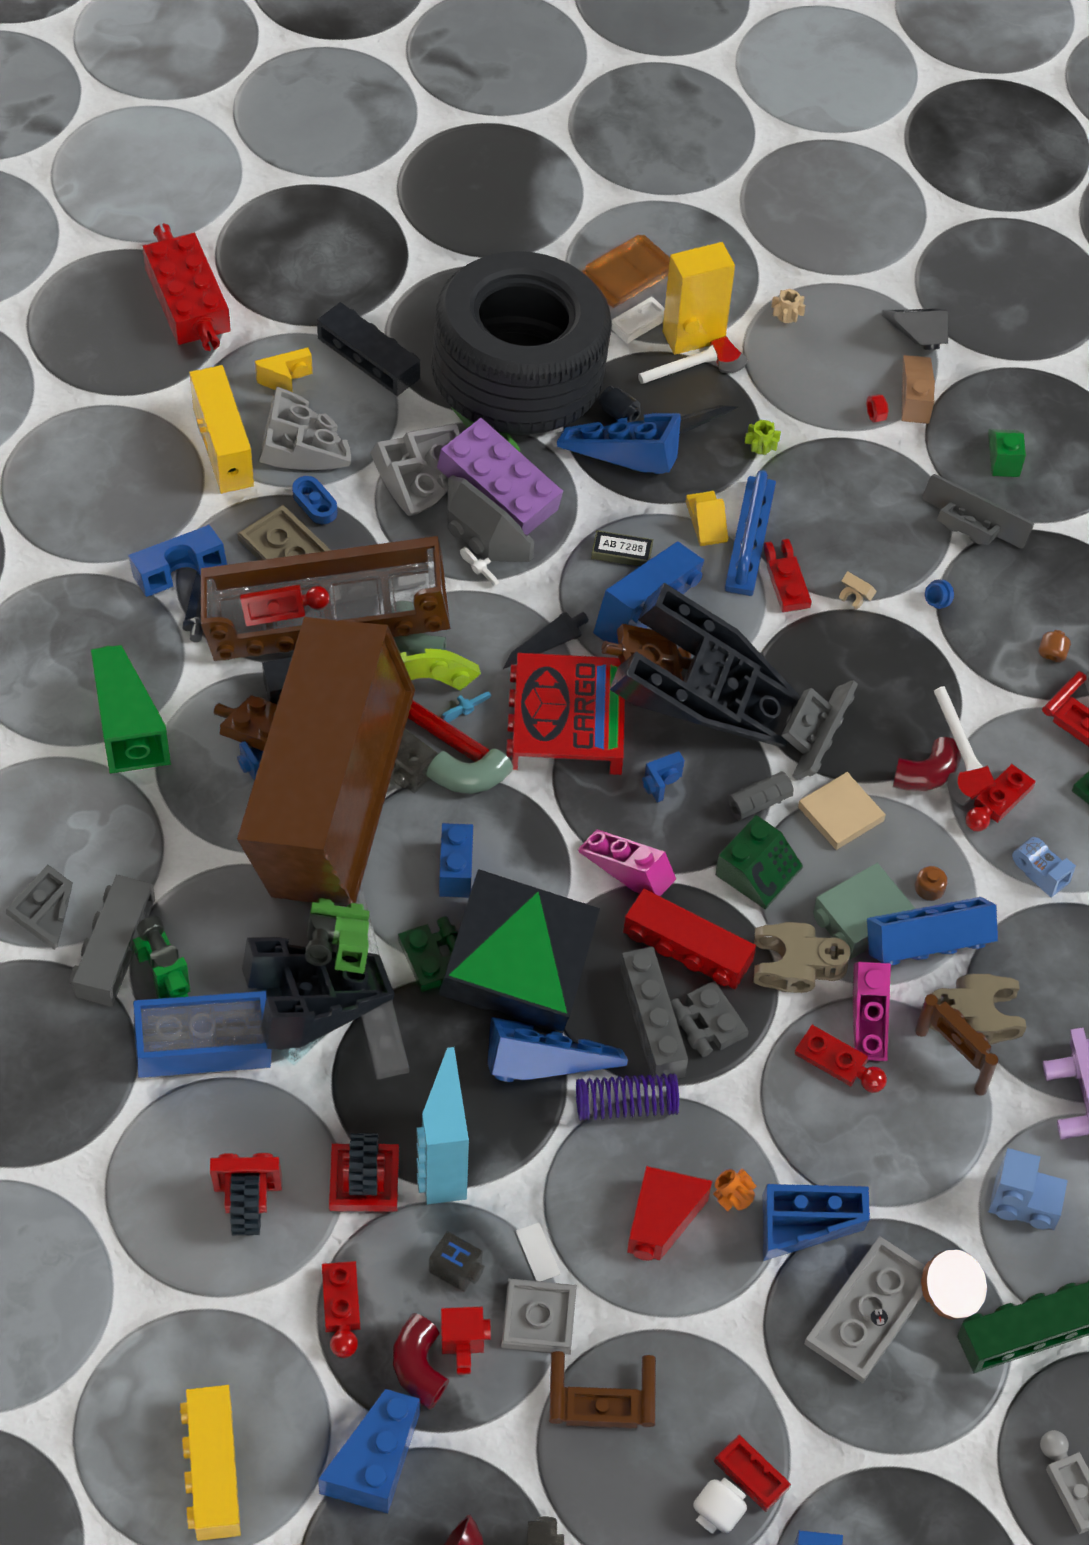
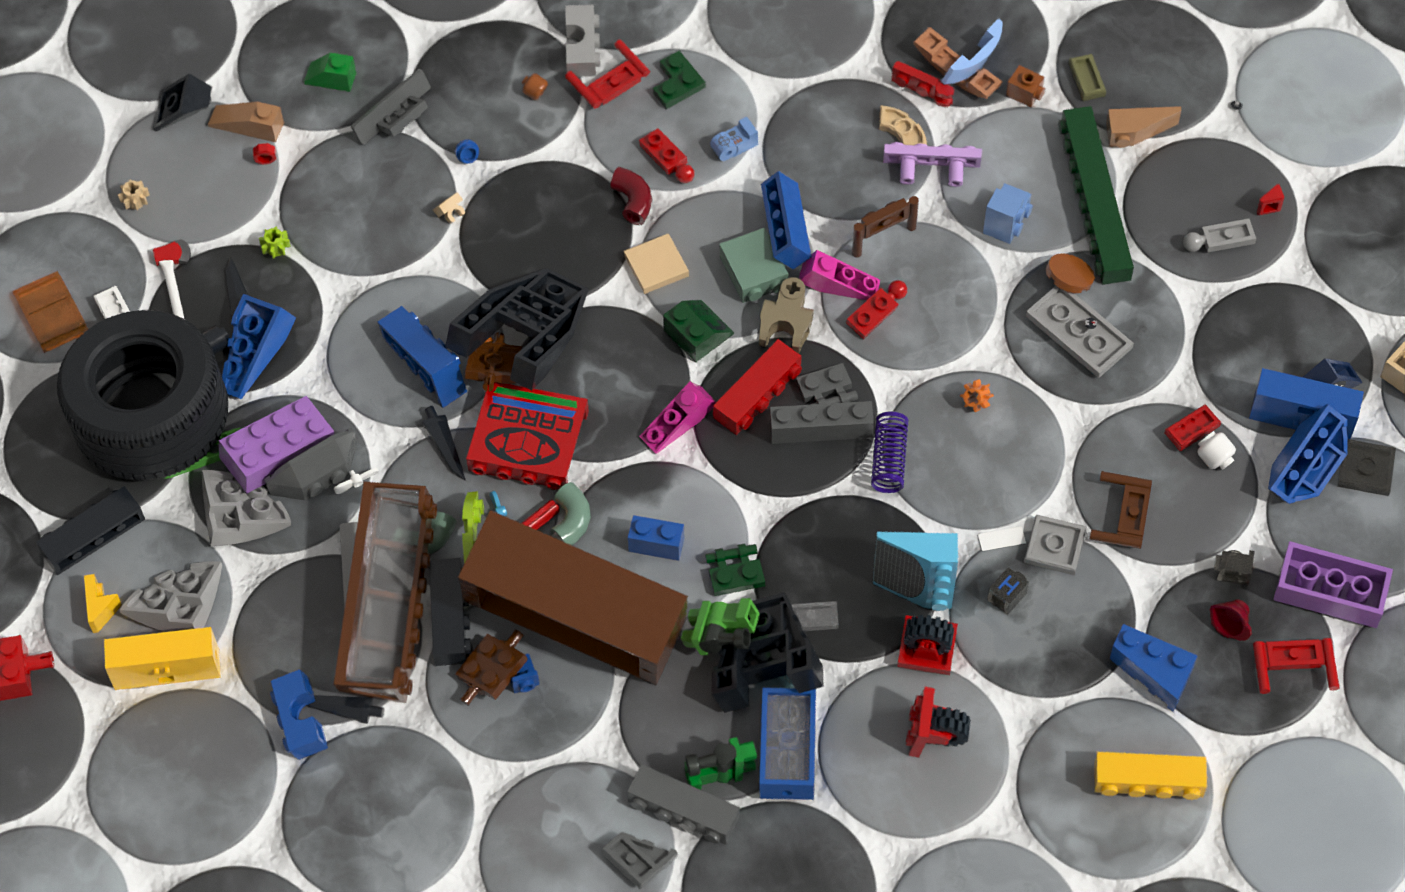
camera: 75 degrees left, 5 degrees up
(130, 721) = (459, 769): green slope -> none
(280, 536) = (299, 628): dark tan tile -> none
(281, 604) = (384, 625): red plate -> none
(319, 503) = (253, 596): blue plate -> none
(341, 1306) = (1031, 675): red plate -> none
(411, 1361) = (1087, 631): dark red cylinder -> none
(464, 1333) = (1066, 594): red brick -> none
(520, 951) = (753, 502): black tile -> none
(525, 1054) = (842, 505): wedge -> none
(621, 548) = (363, 369): tile -> none
(662, 772) = (602, 382): blue bracket -> none
(664, 1211) = (987, 446): red slope -> none
(698, 297) = (131, 249): yellow brick -> none
(708, 518) = (348, 301): yellow slope -> none
(757, 490) = (327, 252): blue piece -> none
(760, 795) = (634, 314): dark grey axle -> none
(787, 578) = (420, 255): red hinge -> none
(810, 1215) = (1007, 351): blue wedge -> none
(814, 725) = (579, 261): dark grey bracket -> none
(931, 883) = (734, 217): dark orange piece -> none
(976, 778) = (654, 163): piece -> none
(976, 999) = (848, 210): dark tan piece -> none

